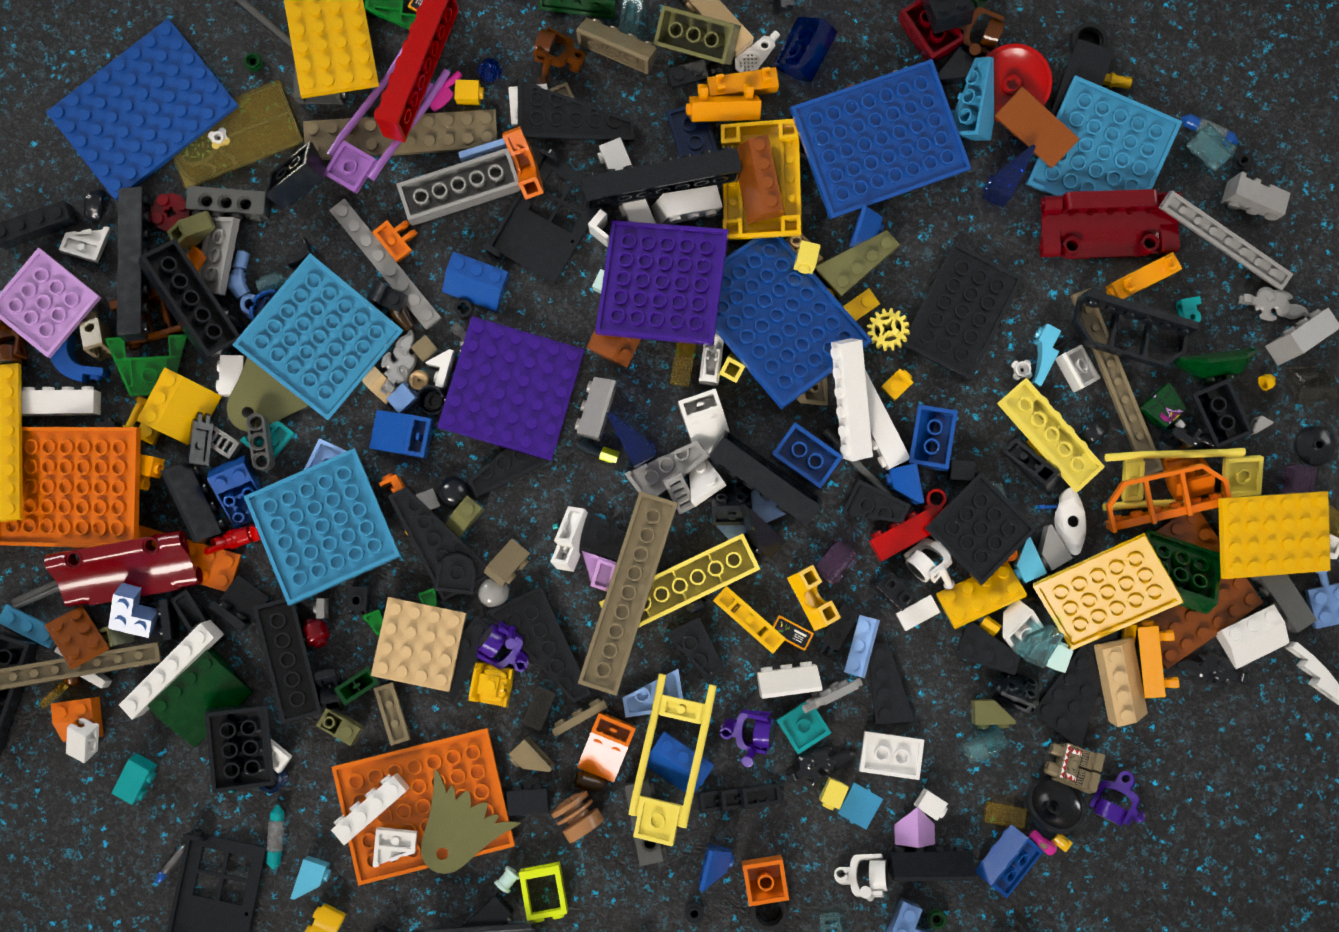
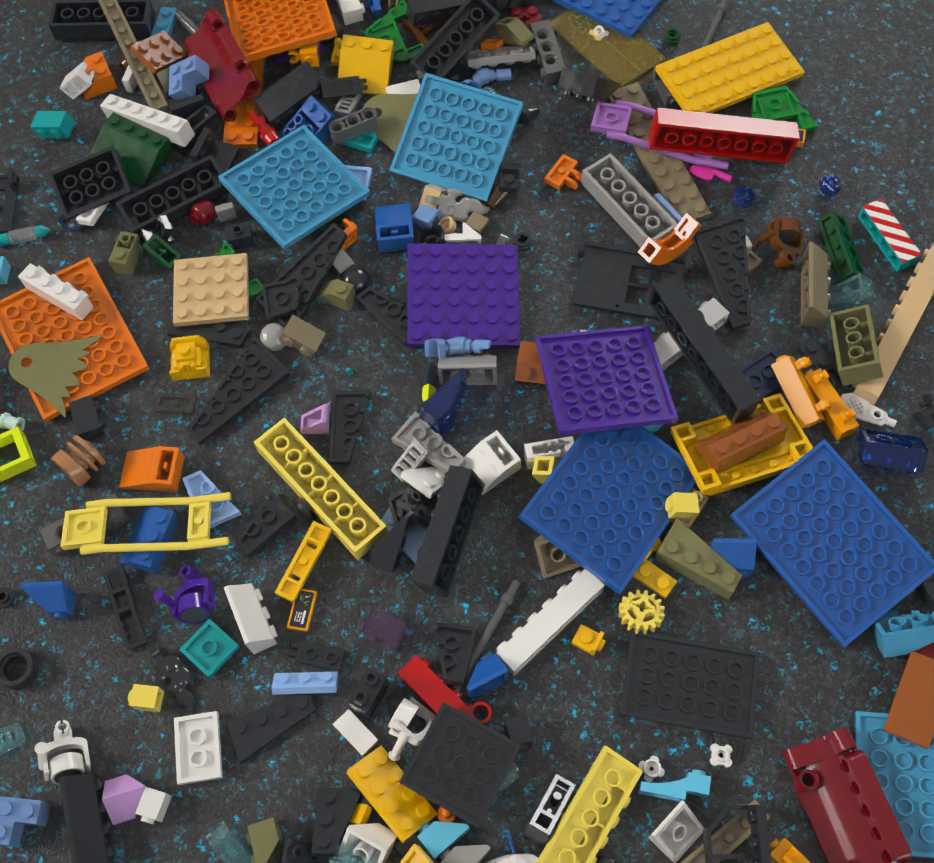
camera: 80 degrees right, 20 degrees down
(53, 695) = (108, 51): clear yellow tile -> none
(384, 263) = (535, 179): light grey plate -> none
(392, 713) = (145, 290): dark tan plate -> none
(392, 844) = (27, 319): white wing -> none
(468, 92) = (716, 187): yellow brick -> none
(475, 281) = (550, 241): blue slope -> none
(493, 640) = (226, 344): dark purple piece -> none
(530, 756) = (129, 408): dark tan slope -> none
(568, 539) = (340, 379): white slope -> none
(571, 413) = (454, 346): none -> medium blue piece
(579, 716) = (174, 438): dark tan plate -> none
(588, 781) = (115, 464): dark brown cone -> none
(596, 226) = (639, 315): white panel -> none
(628, 593) = (298, 437): dark tan plate -> none
(683, 364) = (537, 432): clear yellow tile -> none
(687, 205) = (691, 389): white wedge -> none
(765, 880) = (44, 652): orange slope -> none
(806, 456) = (483, 568): blue brick -> none
(817, 610) = (348, 609): yellow arch -> none
(833, 692) = (251, 666): light grey plate -> none
(851, 399) = (553, 586): white brick -> none
(860, 805) = (139, 732): dark azure piece -> none
(933, 437) = (544, 689): blue slope -> none
(939, 924) = (25, 849): dark green plate -> none
(1002, 185) = (852, 685): clear blue slope -> none
(1022, 310) = (716, 759): none -> white plate

